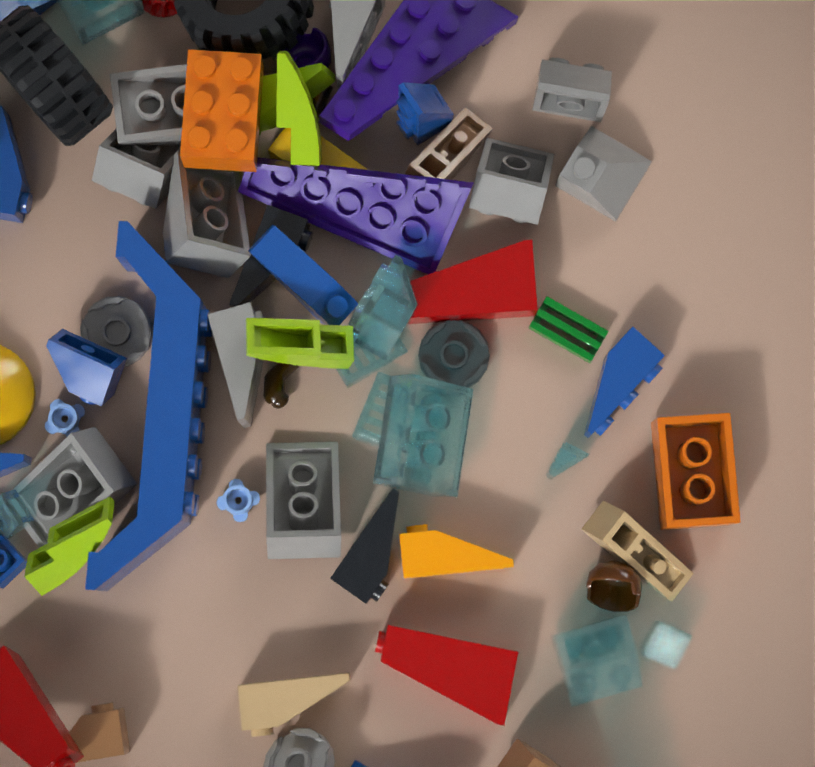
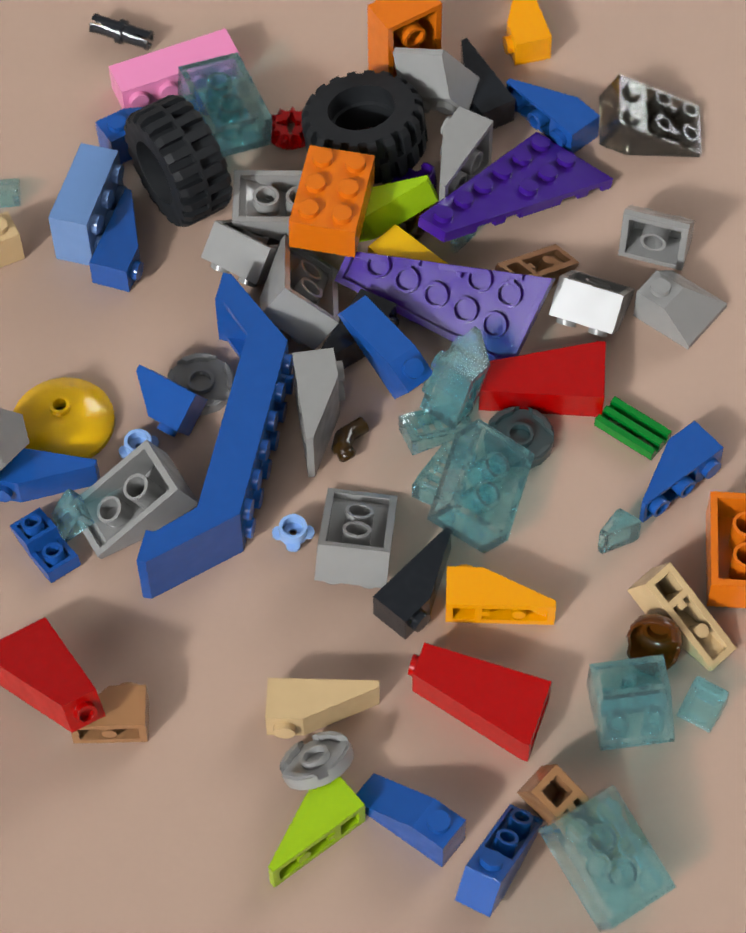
camera: 10 degrees right, 25 degrees down
(69, 546) = (124, 538): lime slope -> none
(297, 112) = (399, 210): lime slope -> none
(300, 342) = (376, 388): lime slope -> none
(421, 111) = (512, 228): blue slope -> none

